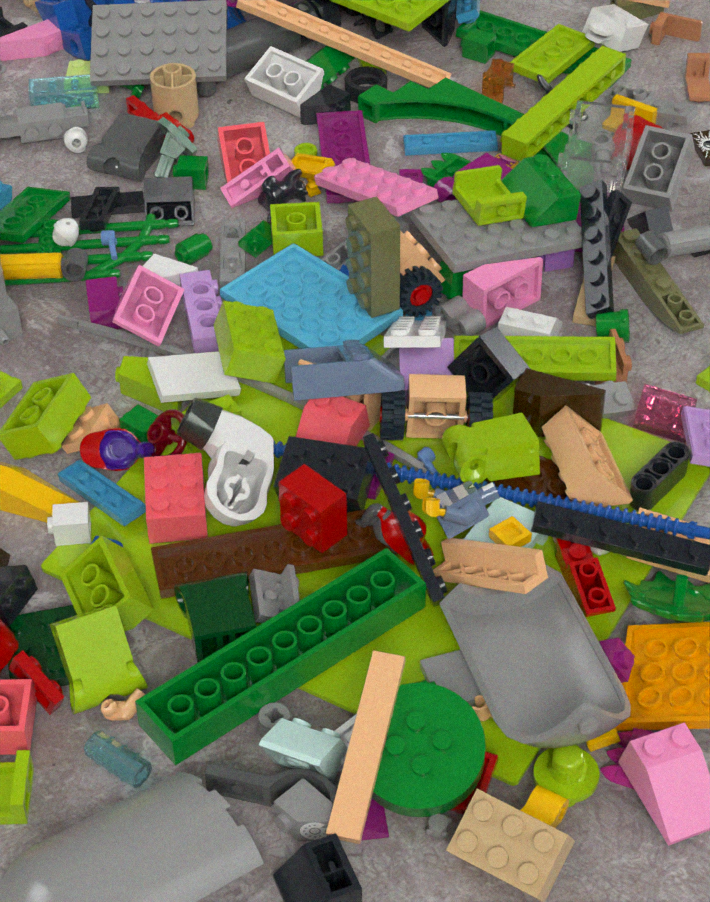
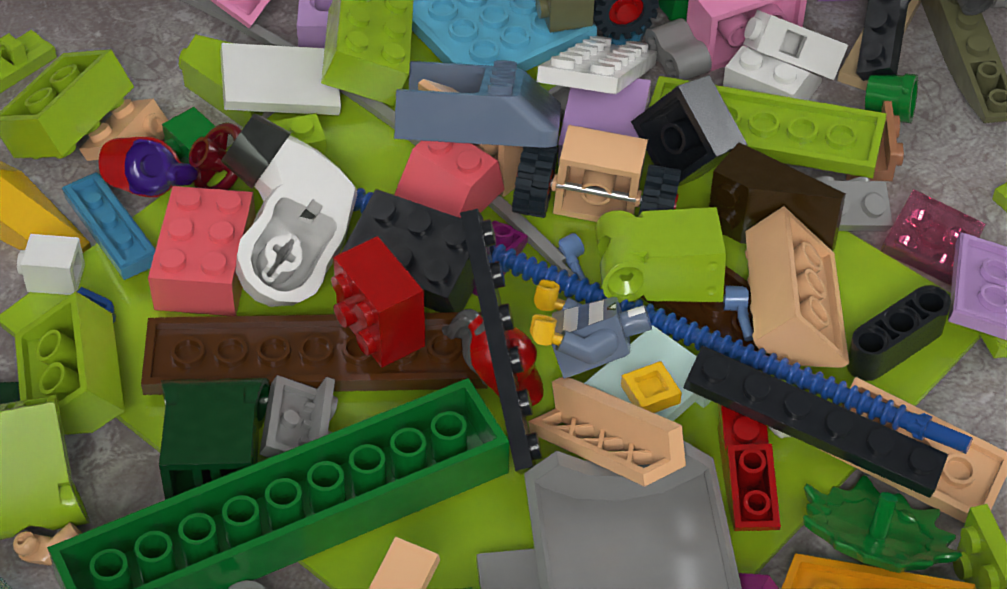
camera: 10 degrees right, 5 degrees up
(541, 300) = (794, 44): none -> white brick
(549, 471) = (737, 299): none -> medium blue hand

